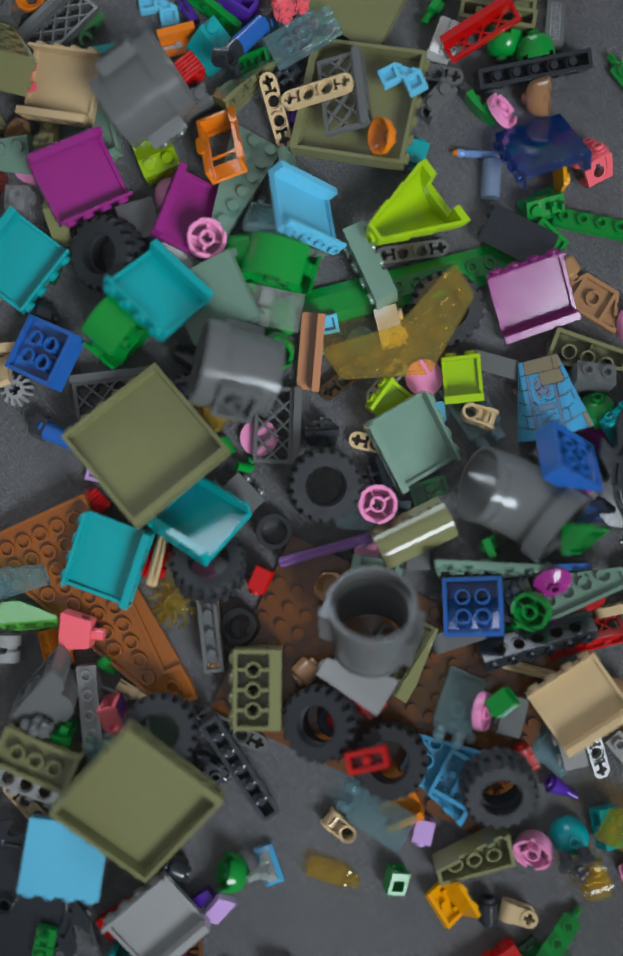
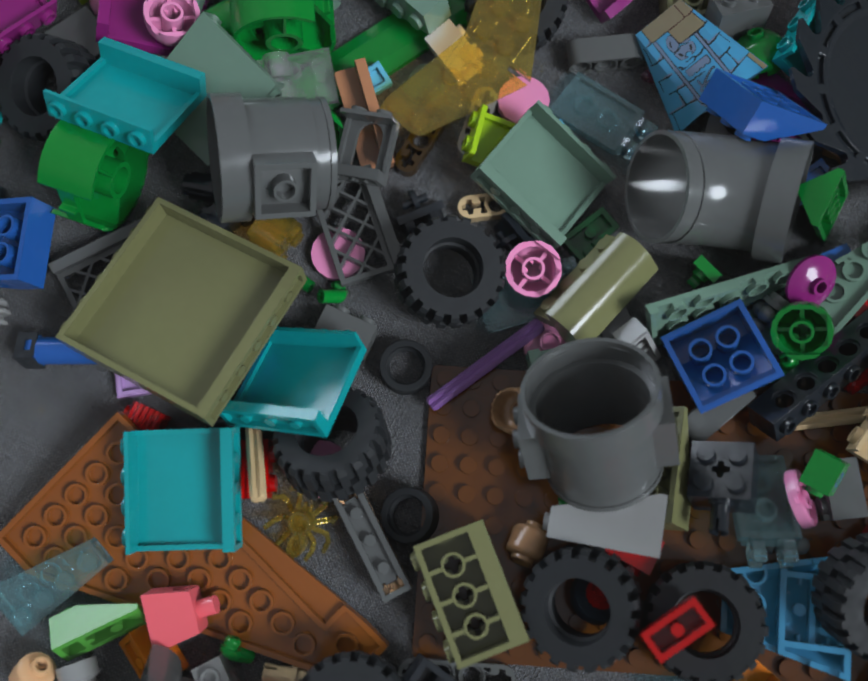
camera: 20 degrees left, 10 degrees down
(260, 580) = (412, 437): red brick -> none
(301, 356) = (355, 121): none -> dark grey panel
(425, 576) = (637, 335): none -> light grey slope
(440, 692) = (723, 480): none -> black brick
(462, 378) = (573, 76): lime panel -> none
(481, 416) = (617, 112): tan piece -> none

